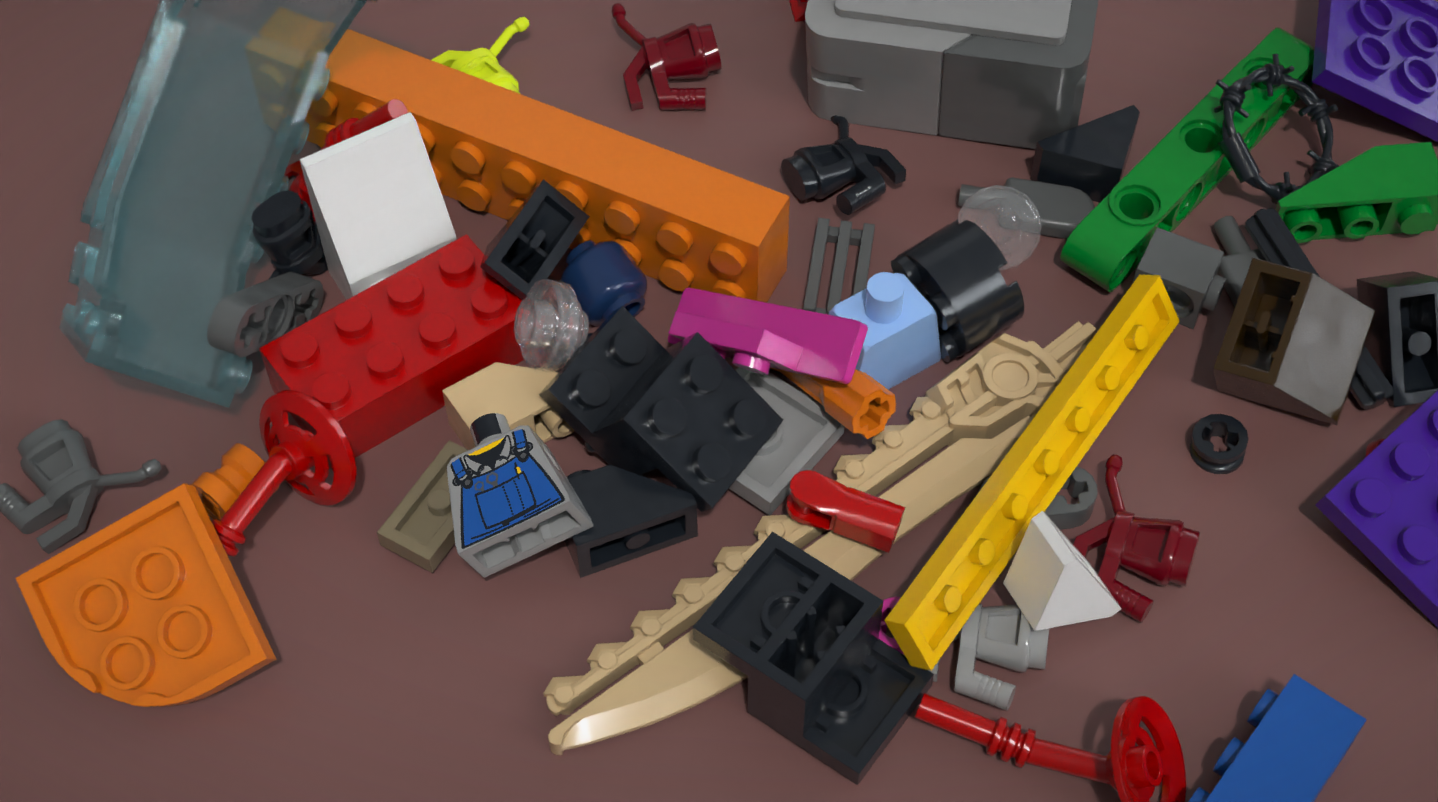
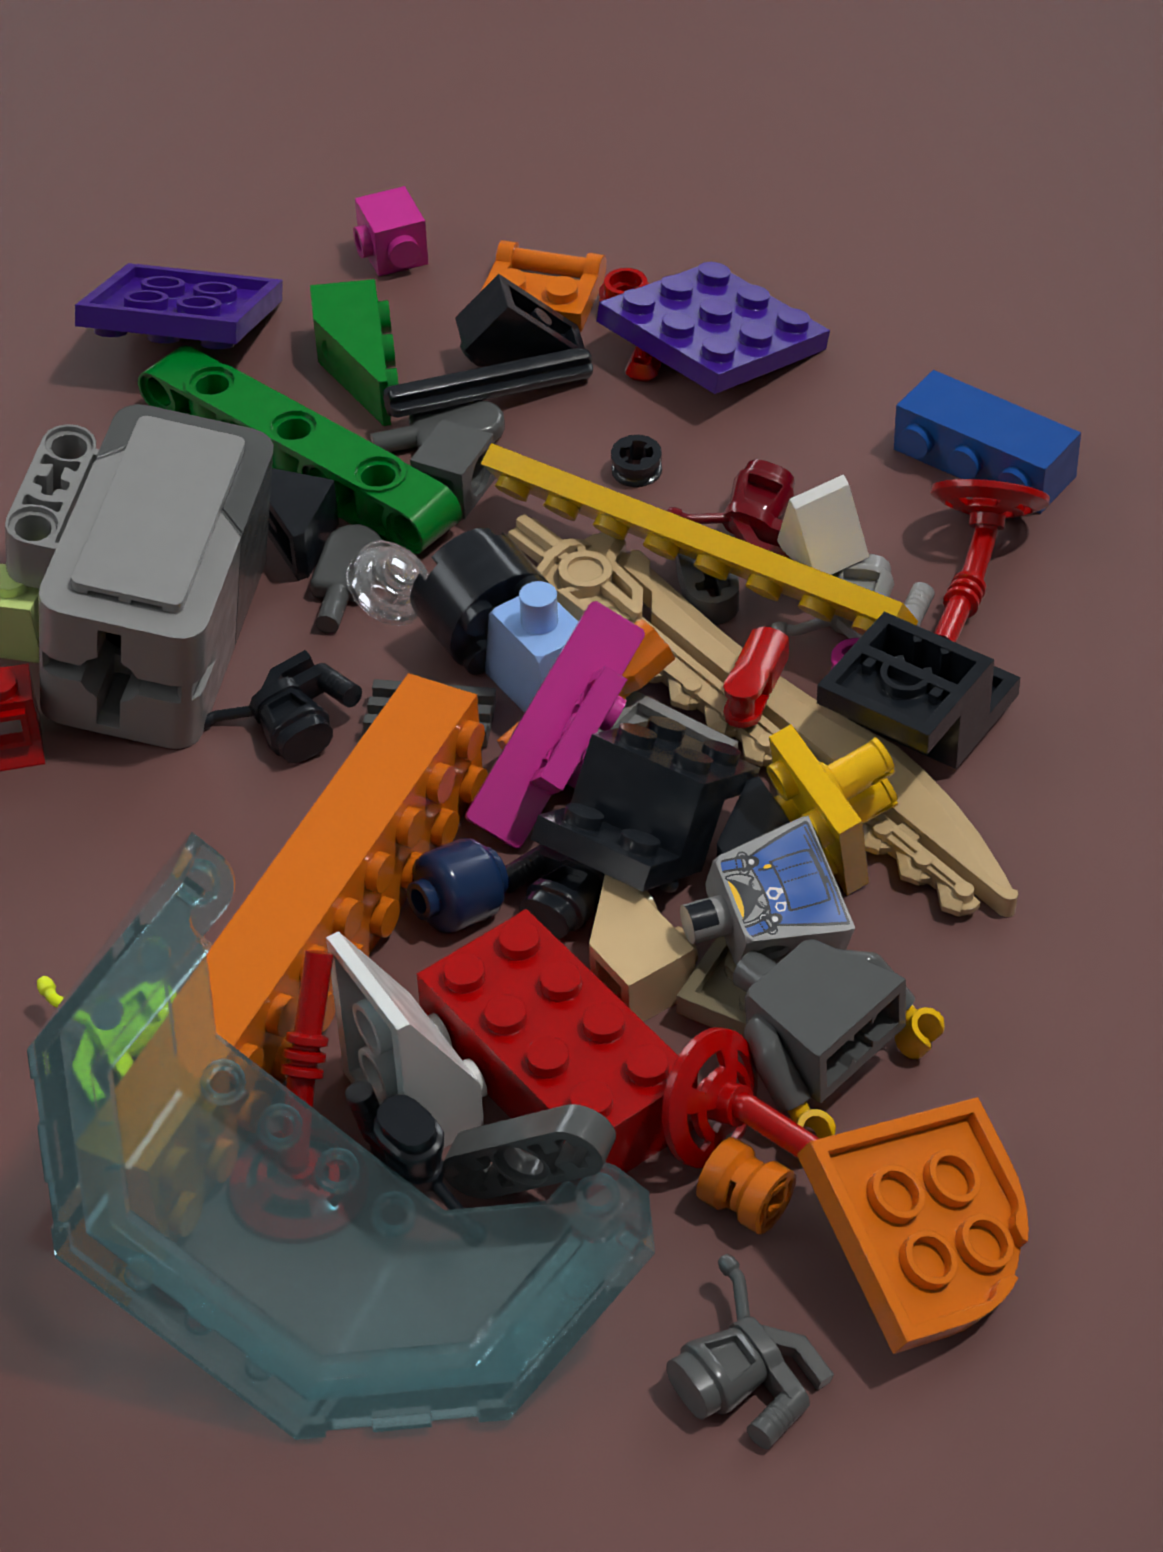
camera: 90 degrees left, 10 degrees down
(378, 537) = (823, 1019): none -> dark grey torso
(533, 240) = (436, 912): black slope -> none
(550, 325) = (563, 875): clear plate -> none
(638, 551) = (834, 797): none -> yellow plate
(677, 55) = (107, 846): dark red piece -> none
(1237, 150) = (333, 400): black piece -> none
(1292, 342) = (543, 394): dark brown slope -> none

